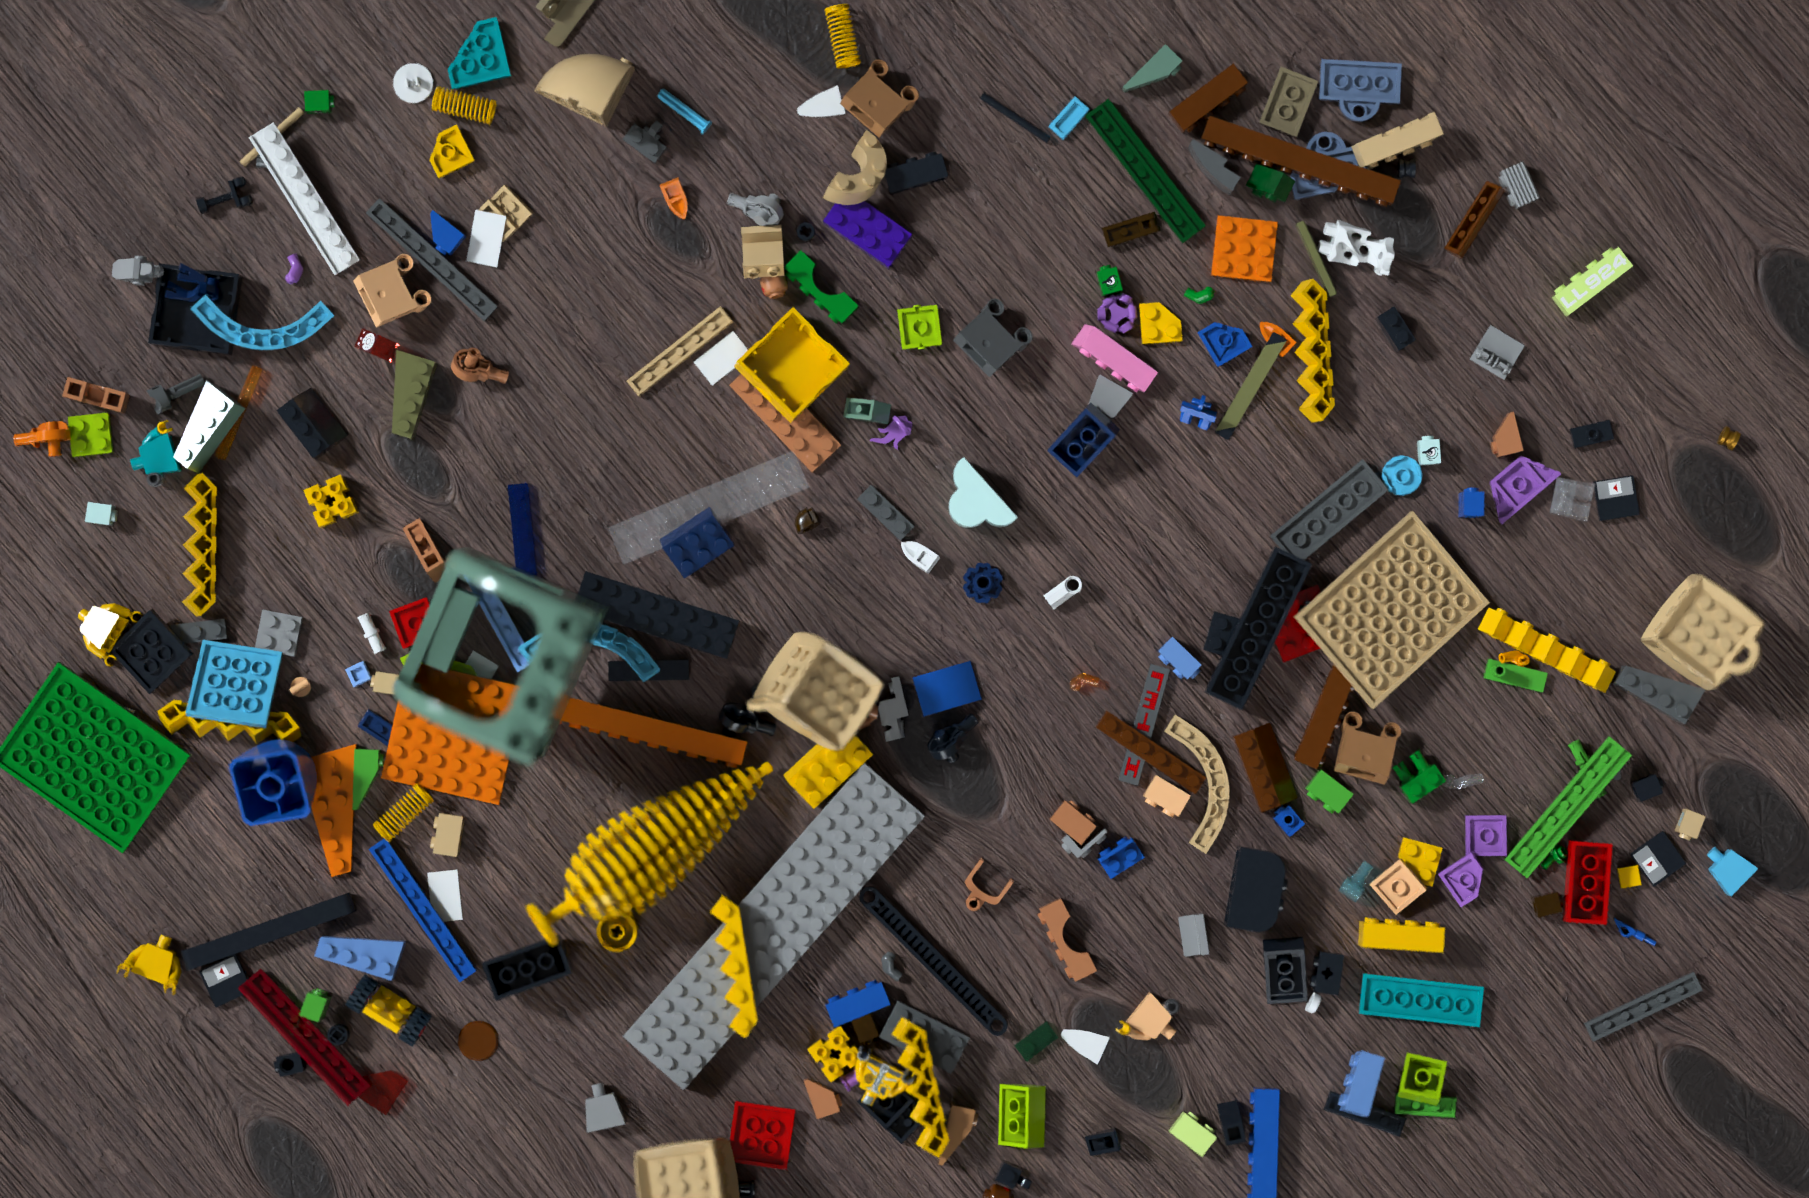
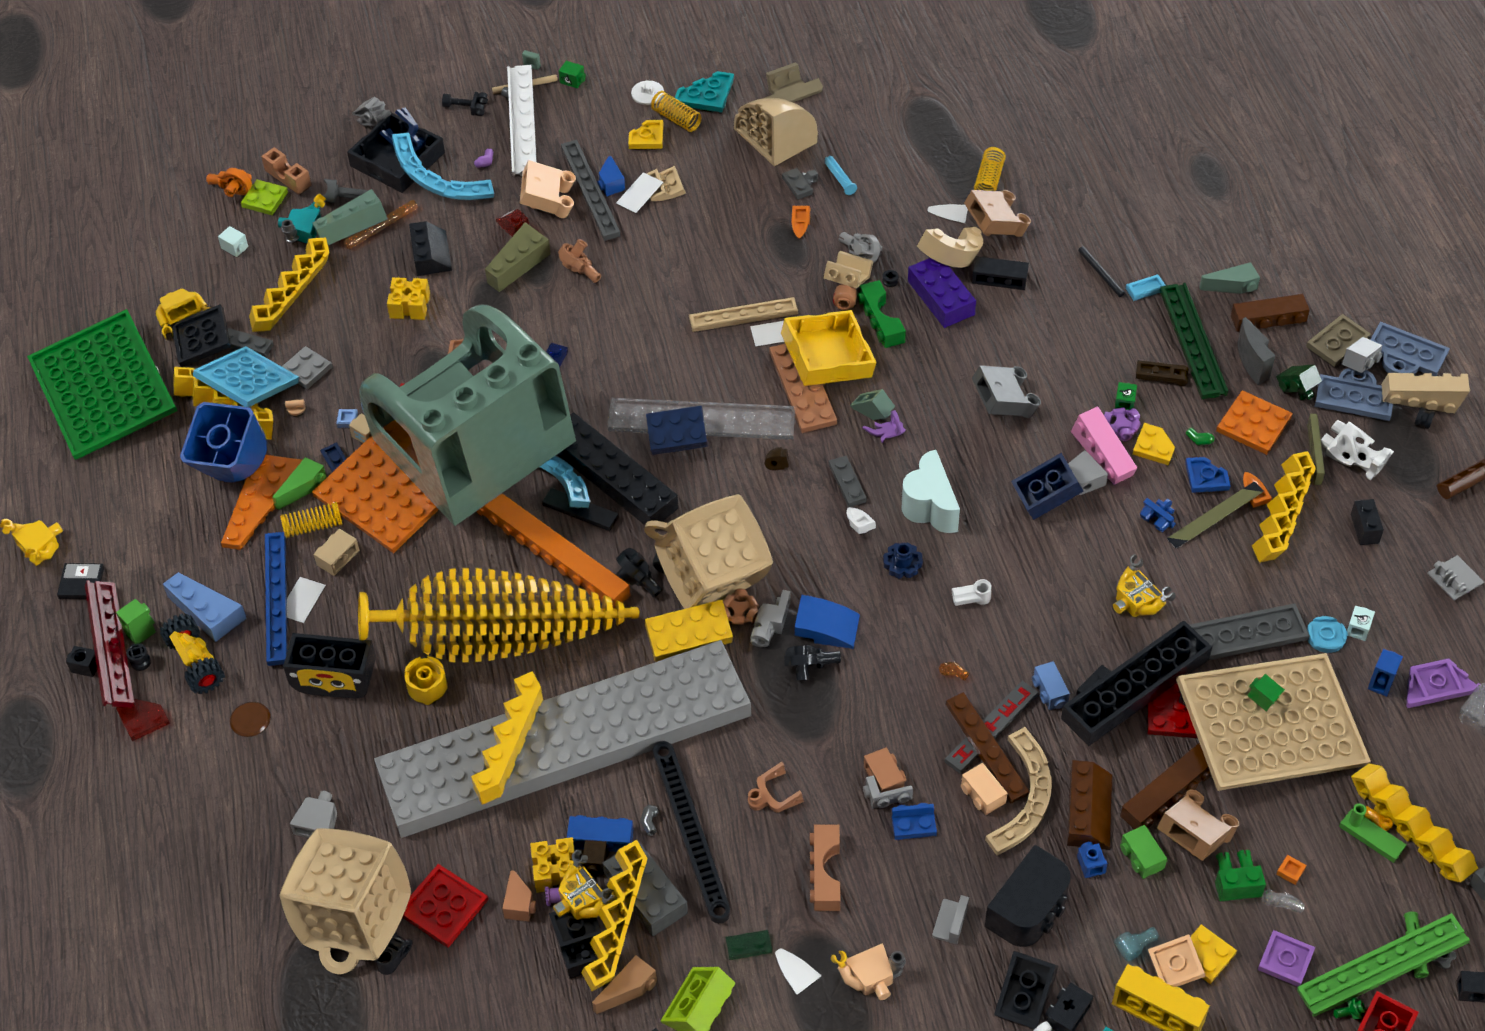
camera: 30 degrees right, 35 degrees down
(260, 101) = (532, 59): none -> sand green tile
(268, 931) = (143, 558): black beam -> none
(919, 327) = (948, 369): lime plate -> none
(1216, 517) = (1138, 593): none -> yellow torso
(1301, 161) = (1337, 376): reddish brown brick -> none
(1320, 118) = (1362, 355): none -> light grey brick
(1377, 593) = (1265, 692): none -> green brick
(1459, 746) = (1291, 869): none -> orange plate
(1463, 878) = (1247, 985): medium lavender plate -> none
(1507, 437) = (1439, 641): nougat slope -> none

